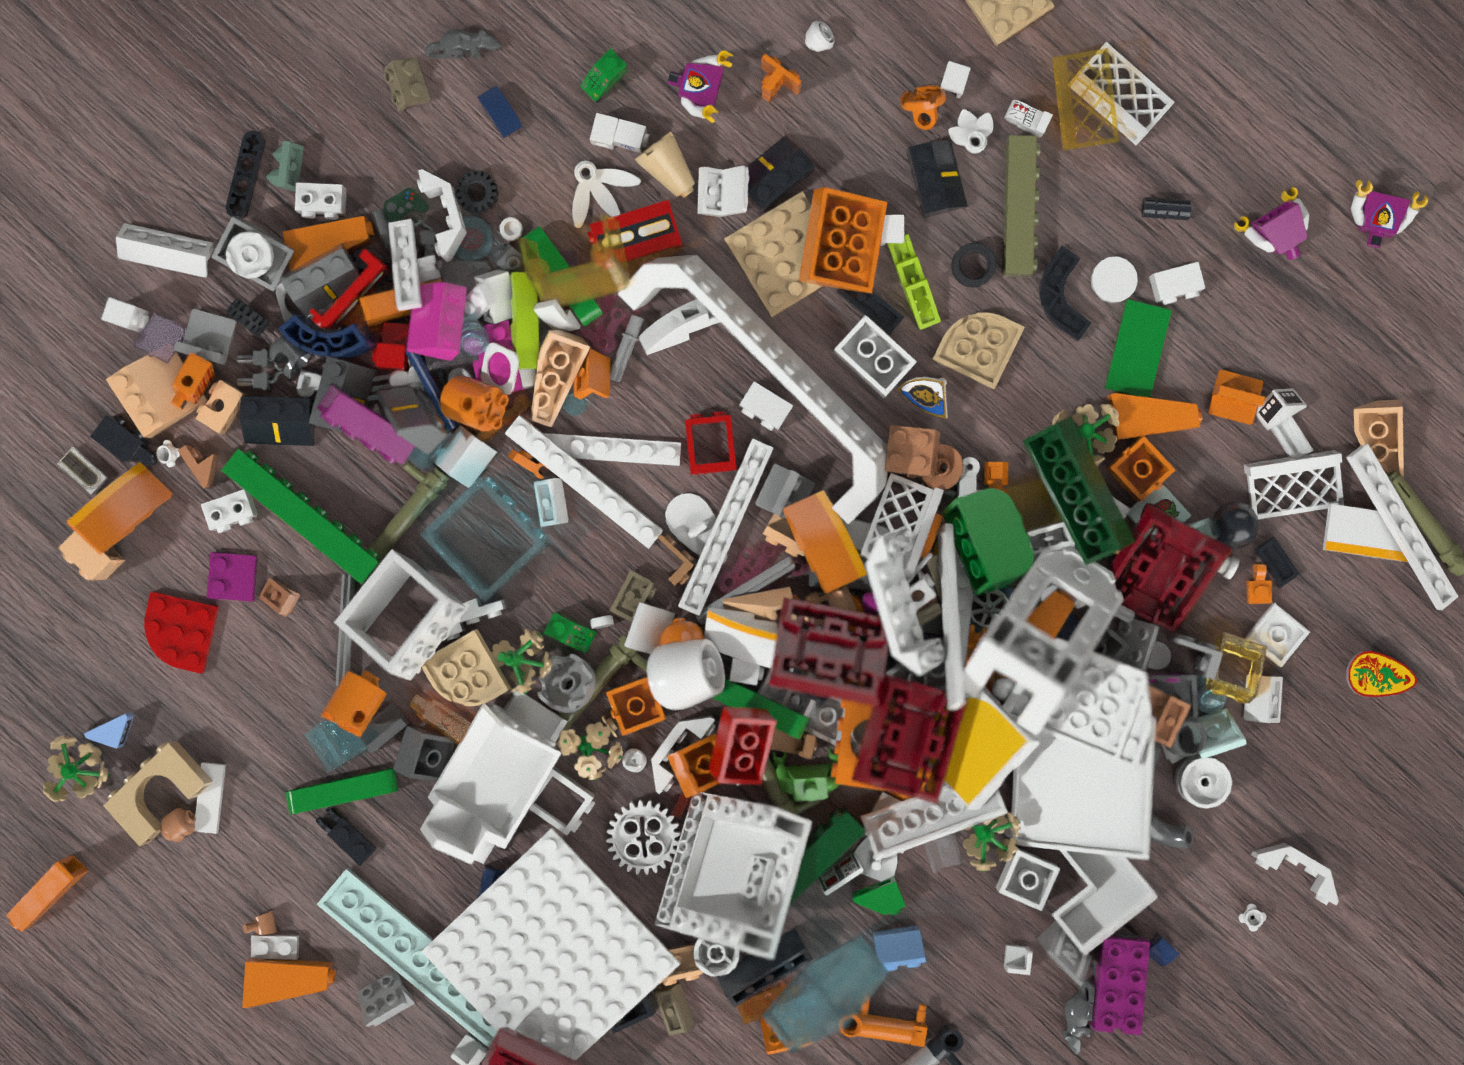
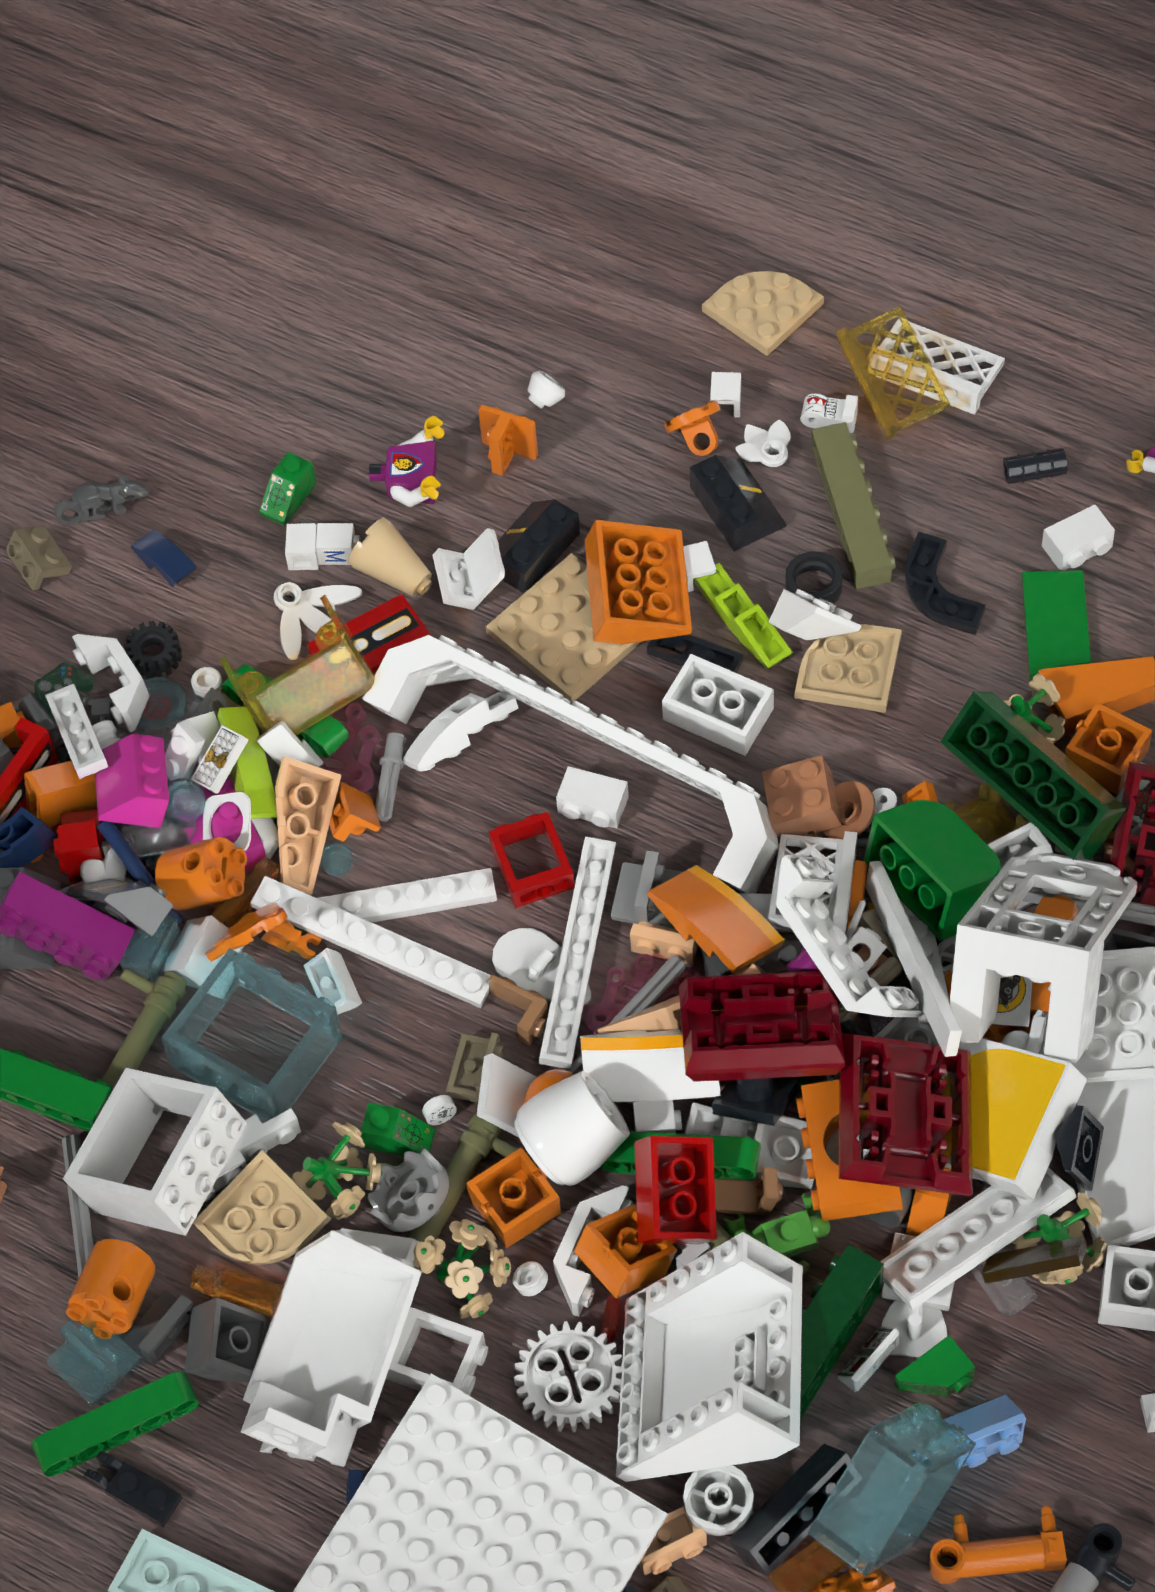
camera: 10 degrees left, 30 degrees down
(500, 456) = (249, 926): none -> orange tile
(503, 319) = (219, 759): none -> white tile
(927, 395) = (799, 731): shield -> none
(962, 302) = (810, 619): none -> white slope
(966, 853) = (1034, 1260): none -> dark brown tile
(1019, 781) = (1080, 1146): none -> black slope
(1114, 279) = (998, 557): white tile -> none

